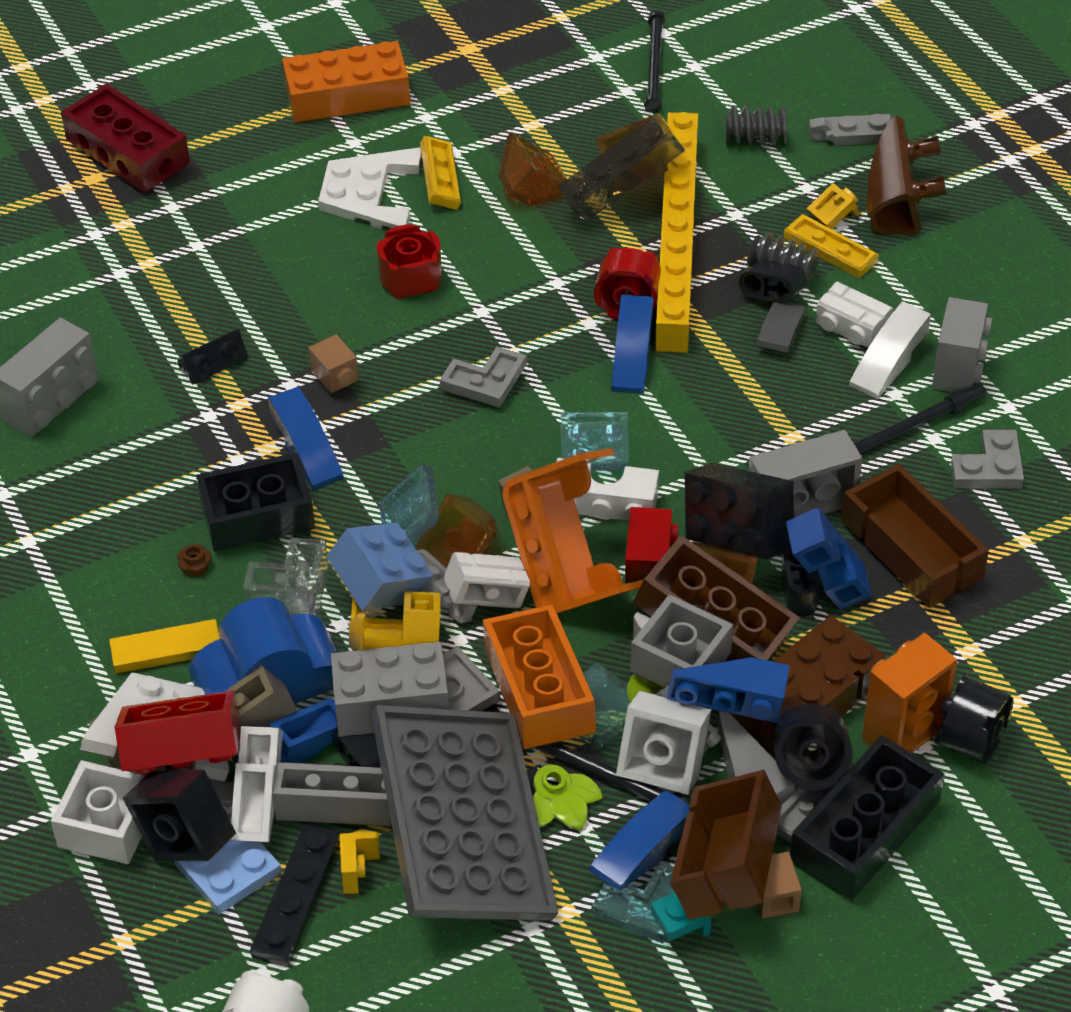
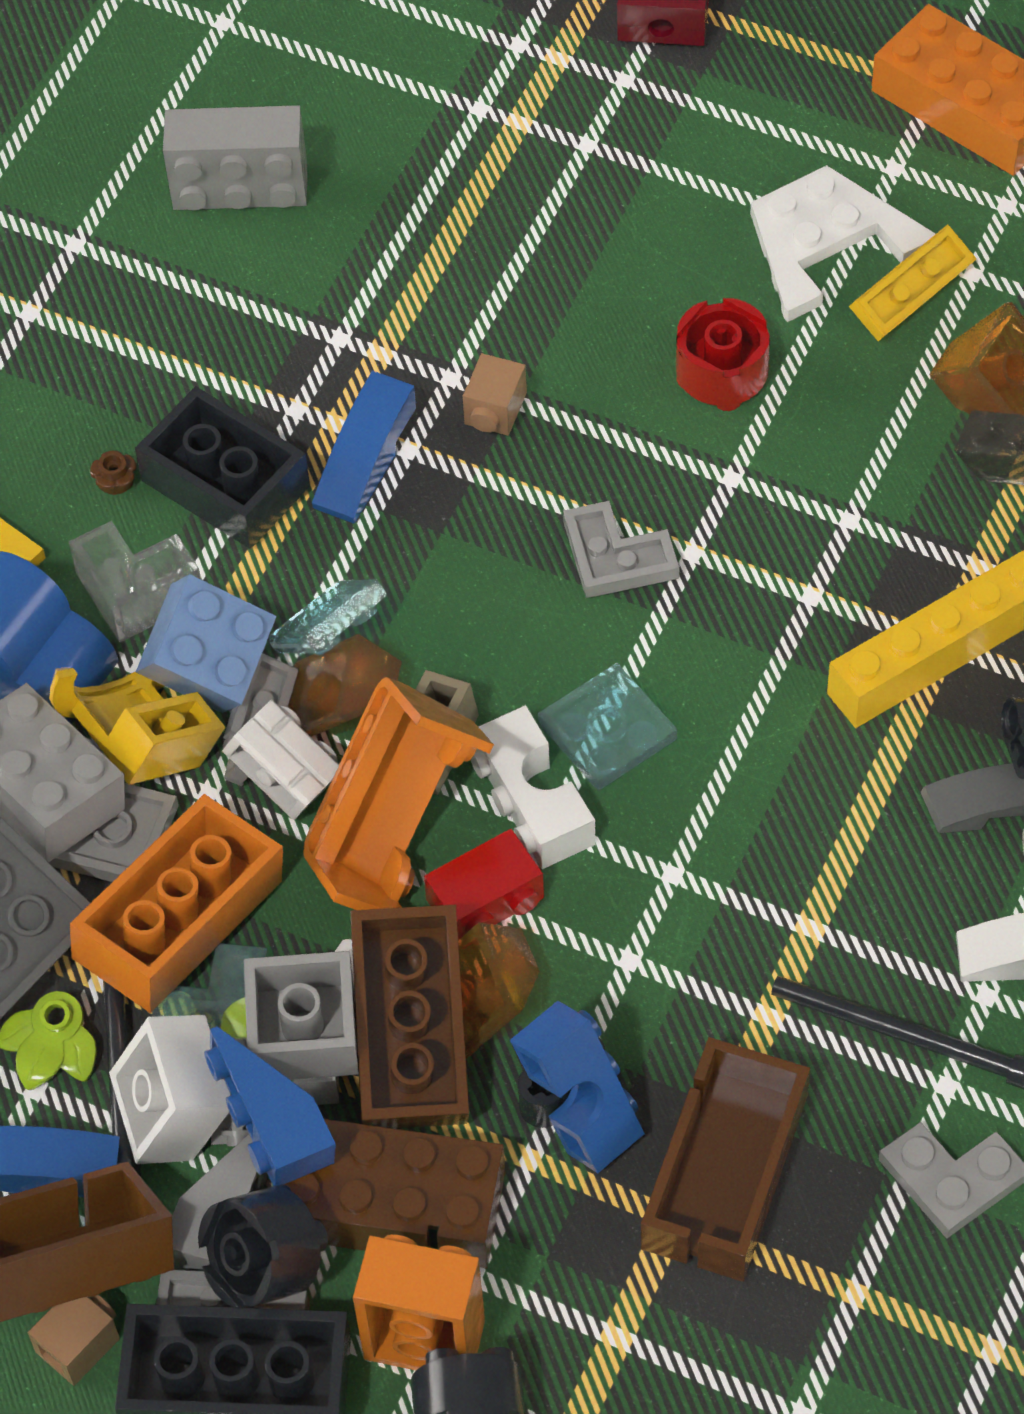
camera: 55 degrees right, 10 degrees up
(213, 356) = (418, 280): black hinge -> none
(626, 273) = (880, 586): red brick -> none
(632, 344) = (795, 662): blue slope -> none
(738, 510) = (574, 935): black brick -> none
(819, 468) = (707, 978): light grey brick -> none

